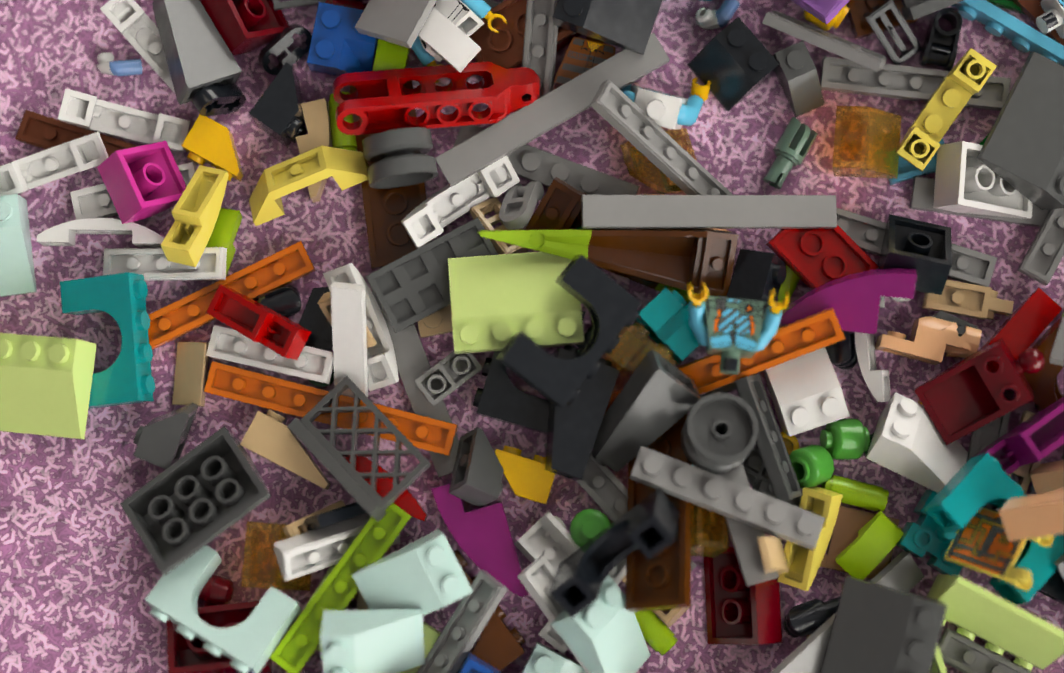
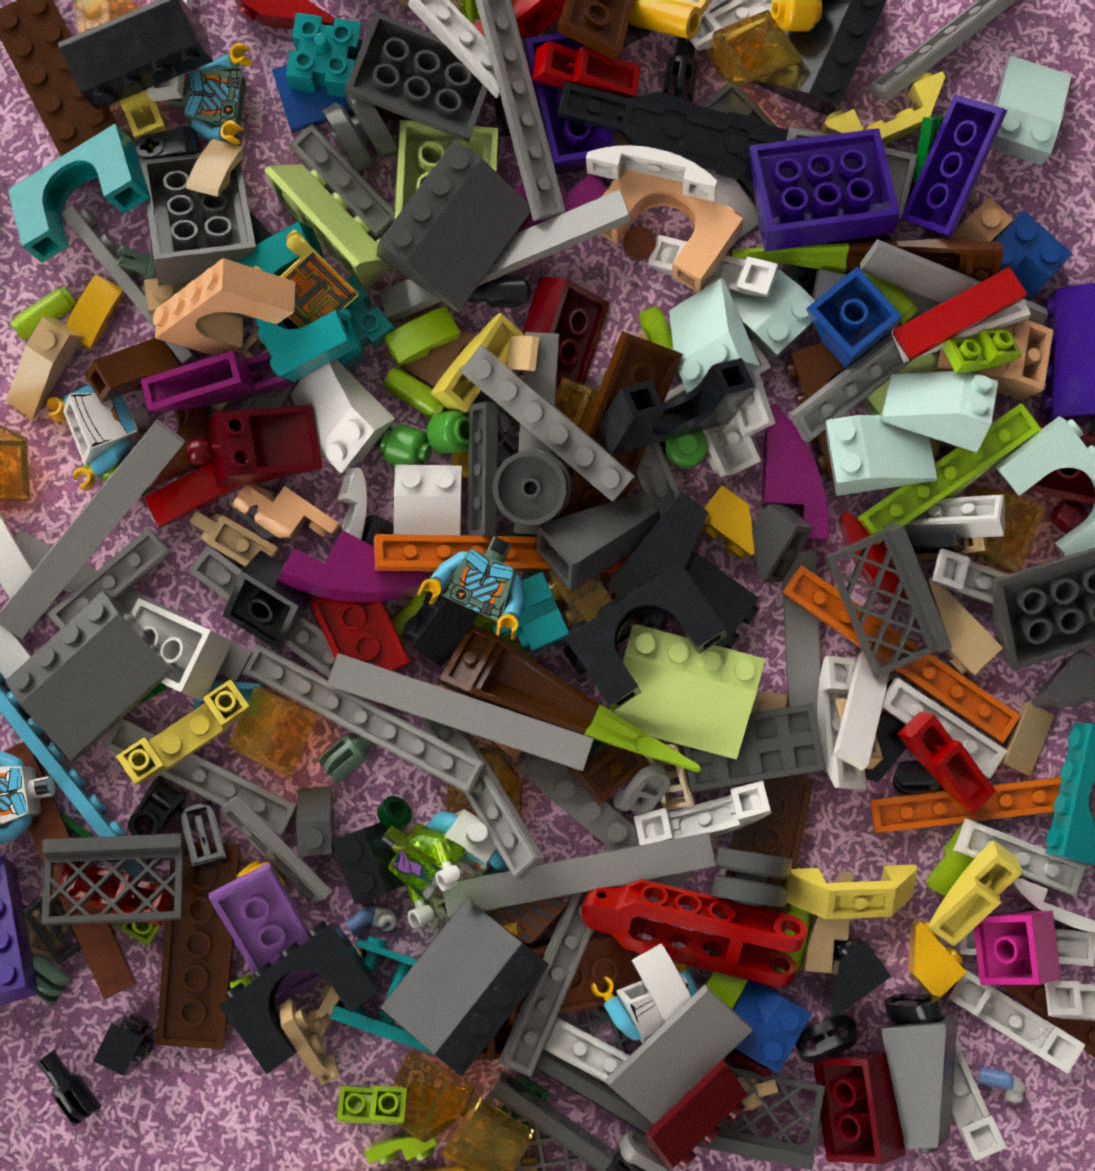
camera: 160 degrees left, 0 degrees up
(293, 499) = (965, 576): none -> white slope
(447, 376) = (776, 644): light grey slope -> none
(690, 71) = (424, 864): none -> torso
(732, 110) = (394, 812): none -> dark green tile
(789, 178) = (365, 719): none -> light grey tile

